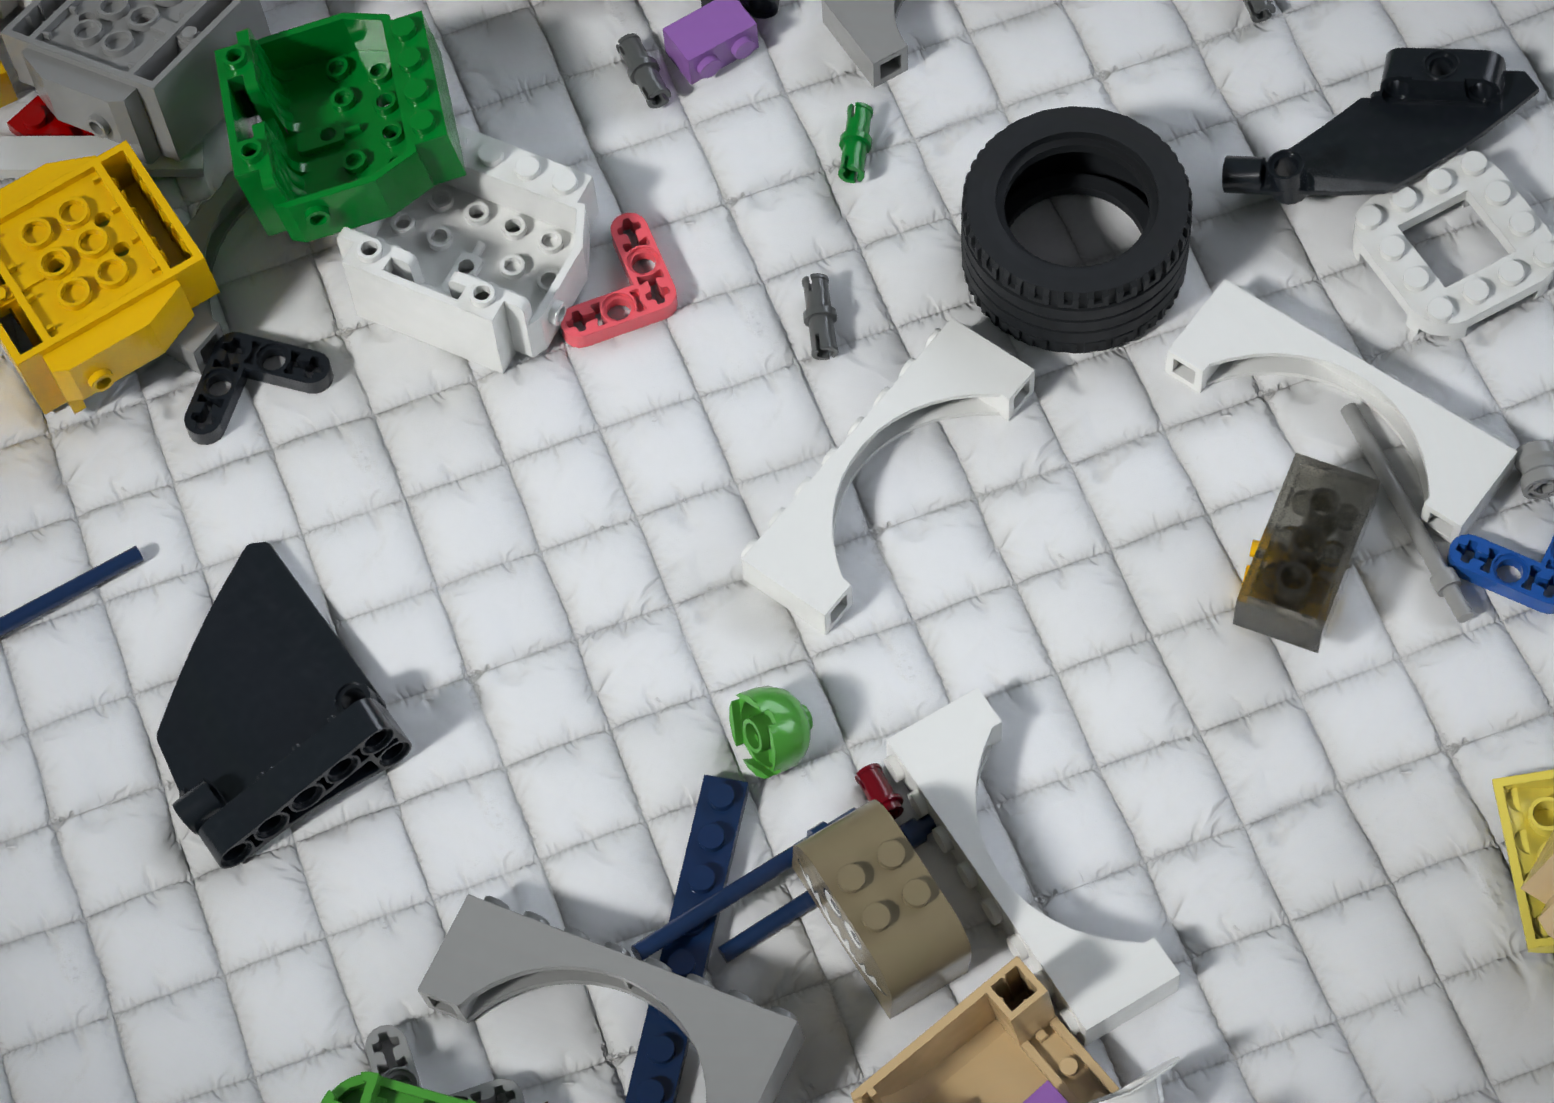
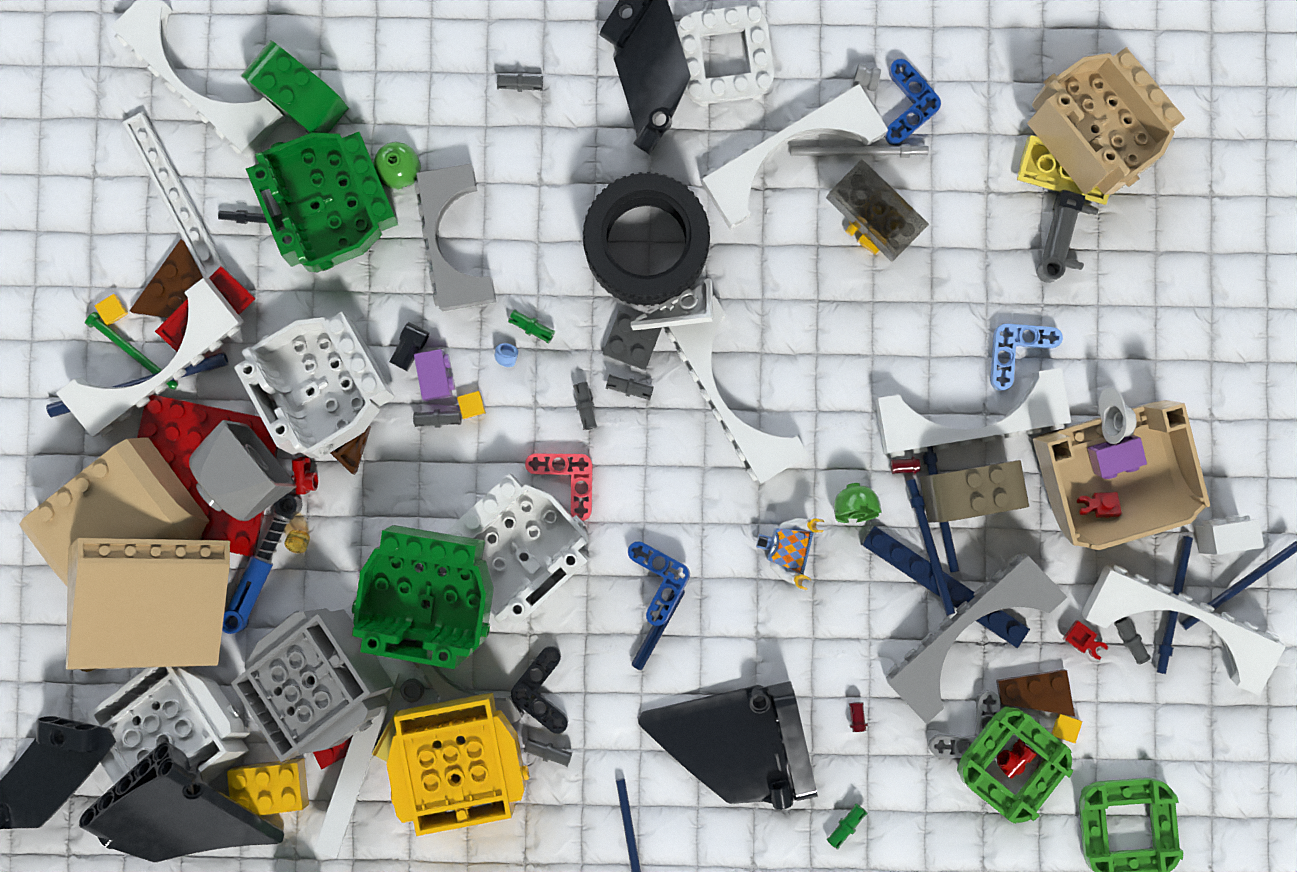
camera: 70 degrees left, 25 degrees up
(148, 424) = (548, 752): none -> dark grey pin
(181, 940) = (847, 826): none -> green pin
(183, 197) = (412, 690): none -> dark grey plate
(388, 885) = (857, 717): none -> dark red pin
(425, 512) = (653, 637): none -> dark blue axle
(514, 489) = (668, 582): none -> blue beam
(647, 657) = (790, 548): none -> torso
(687, 111) = (471, 405): none -> yellow tile
(758, 264) = (585, 406): none -> dark grey pin
(791, 124) = (506, 354): none -> light blue tile
(901, 295) = (631, 345): none -> dark grey plate
(983, 324) = (687, 308): none -> white wing
(1195, 892) = (1016, 340): none -> light blue beam
(1481, 885) = (1066, 208): none -> dark grey piece

